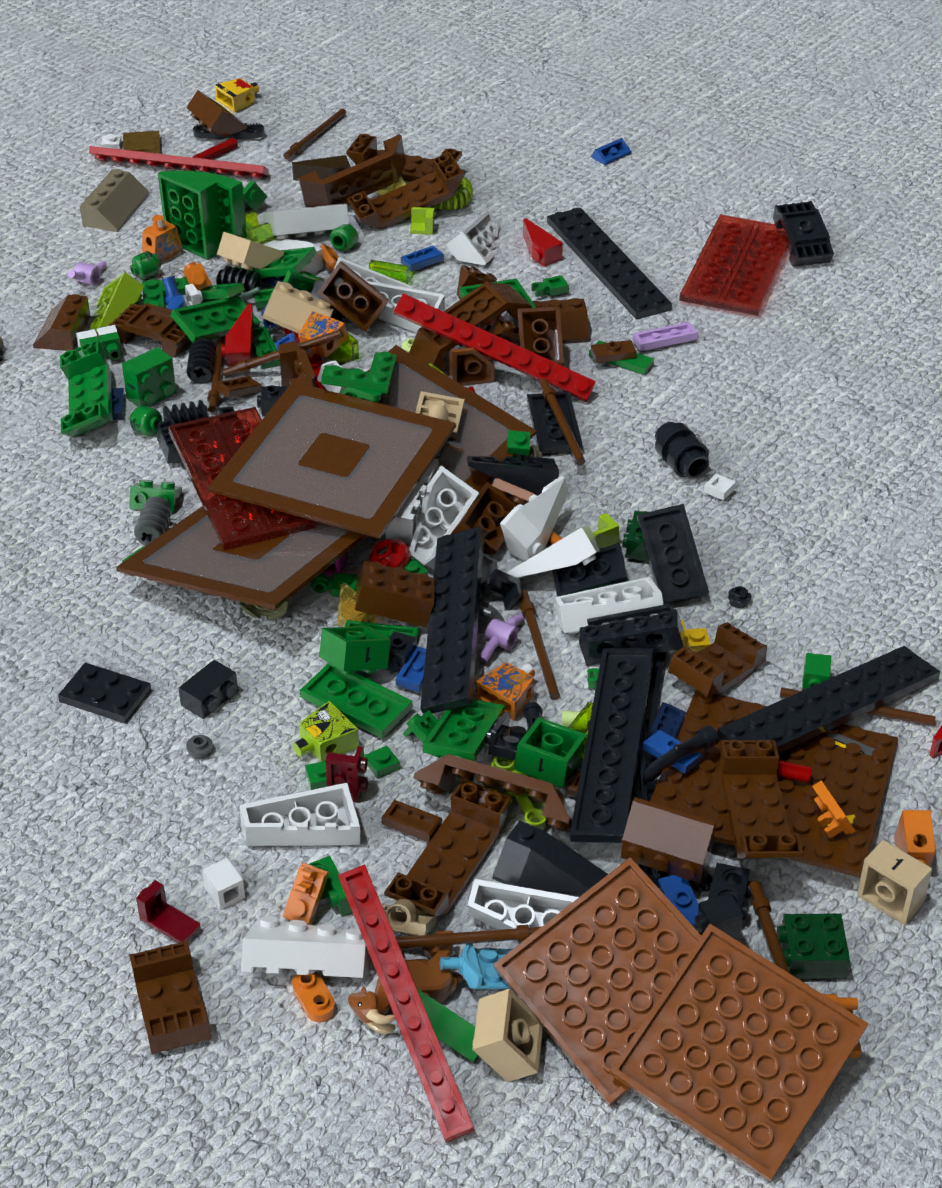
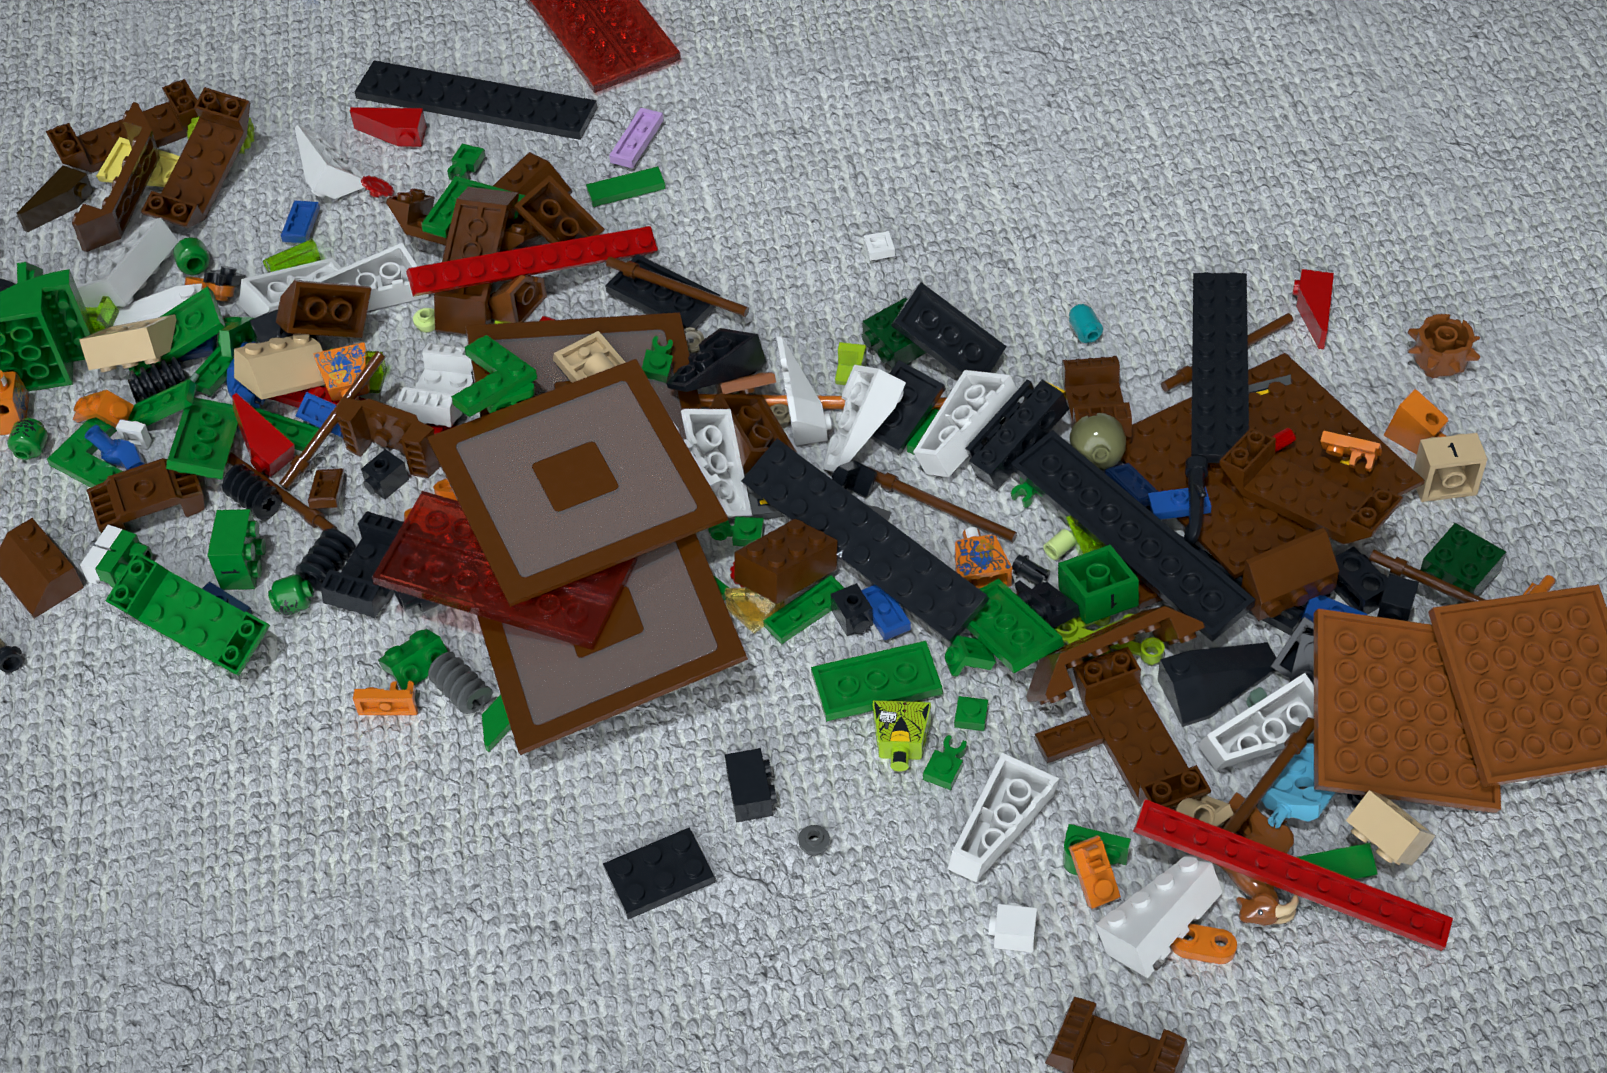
camera: 45 degrees left, 10 degrees up
(114, 506) = (386, 702): none -> orange plate
(115, 299) = (60, 505): lime wedge -> none
(163, 917) = (1015, 999): dark red bracket -> none
(335, 253) = (225, 276): none -> black plate
(348, 770) = (981, 747): dark red bracket -> none
(354, 649) = (828, 637): green brick -> none
(396, 556) = (728, 541): red piece -> none
(422, 220) = (242, 182): lime panel -> none
(484, 445) = (658, 361): none -> green plate
(486, 265) = (377, 186): none -> red piece
(500, 634) = (905, 518): lavender piece -> none
(518, 442) = (683, 335): green plate -> none
(613, 351) = (618, 185): reddish brown plate -> none
(676, 680) = (1099, 440): none -> olive cylinder
(682, 450) = (823, 237): black piece -> none
(739, 597) = (1025, 332): black plate -> none
(783, 619) = (1085, 323): none -> teal brick
(816, 669) = (1171, 349): green brick -> none

